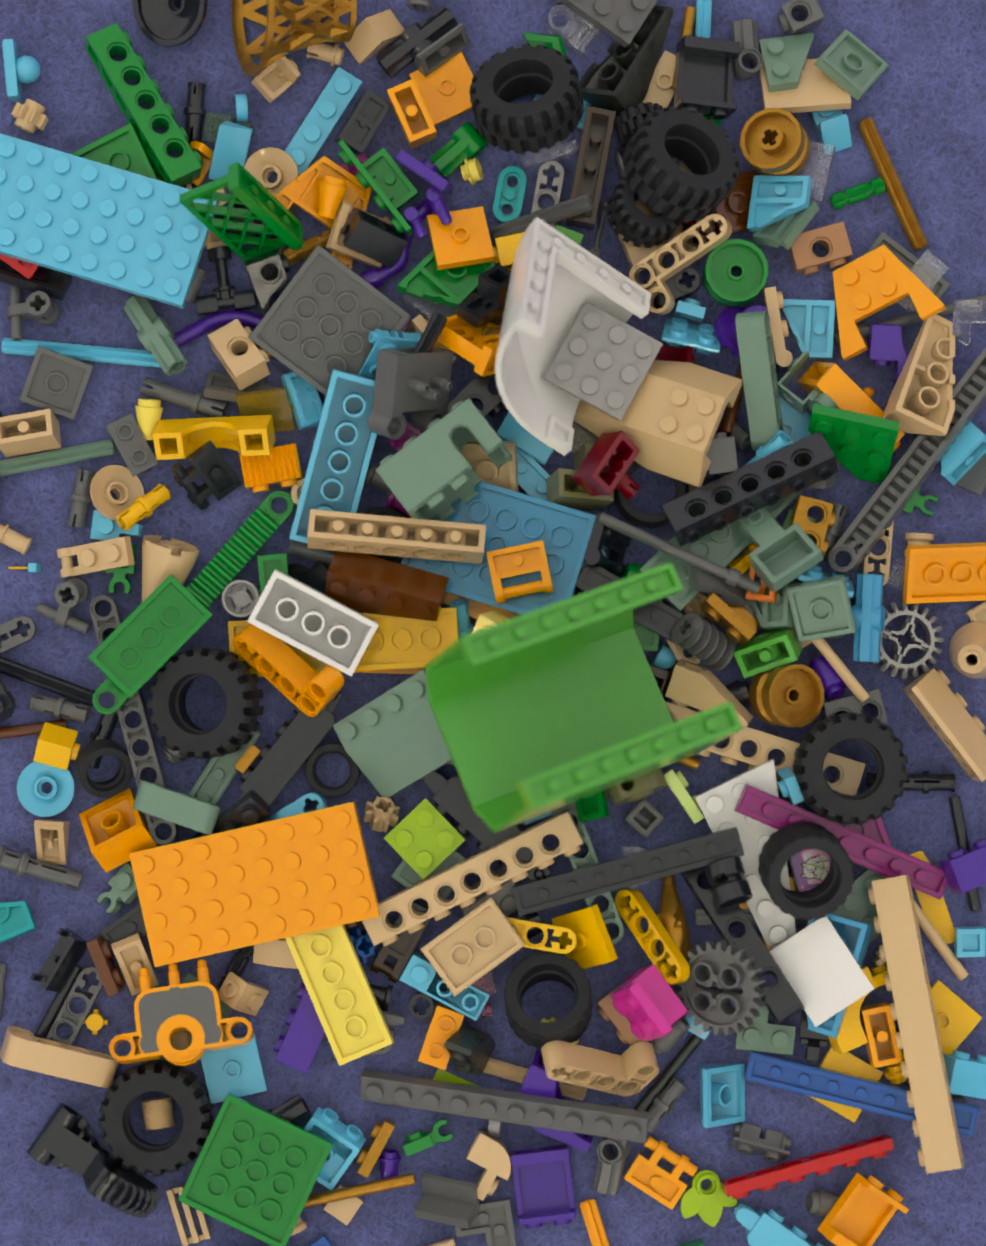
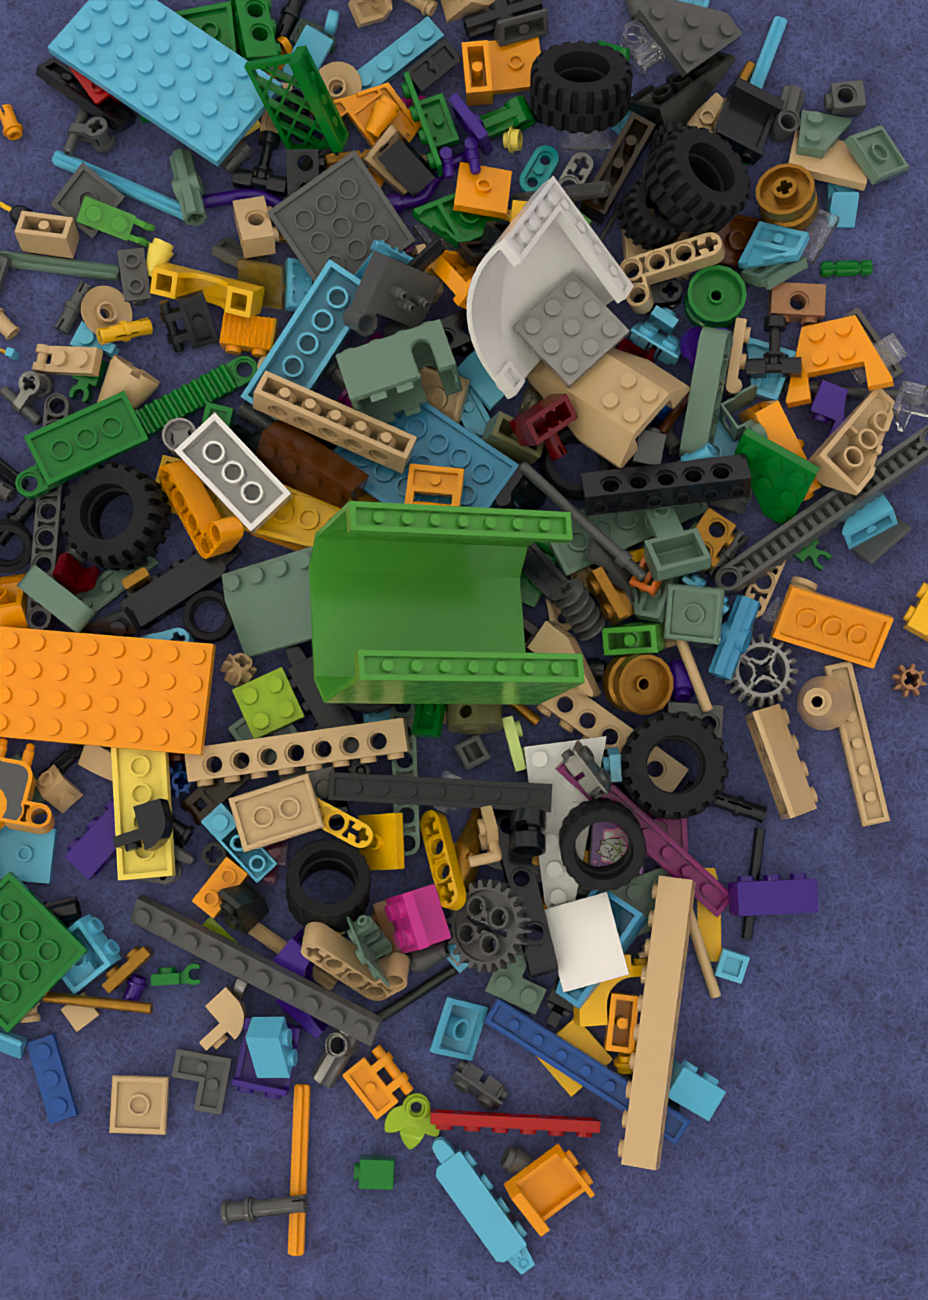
camera: 25 degrees right, 5 degrees down
(90, 396) = (112, 220): none -> bright green hinge
(183, 398) = (201, 256): dark grey pin -> none
(184, 776) = (73, 575): none -> dark red bracket
(358, 1000) = (154, 826): none -> black brick
(447, 1201) = (174, 1040): dark grey panel -> none
(547, 1176) = (271, 1047): none -> medium azure brick
(612, 1043) = (371, 944): none -> sand green hinge
(664, 658) = (539, 616): medium azure hinge -> none
(664, 1102) = (402, 1019): dark grey pin -> none
(691, 902) = (488, 839): none -> tan plate
(778, 810) = (582, 760): none -> dark grey hinge
(817, 319) = (774, 360): none -> black bar
(892, 183) = (880, 270): pearl gold axle -> none
(953, 1017) = (694, 1029): yellow plate -> none

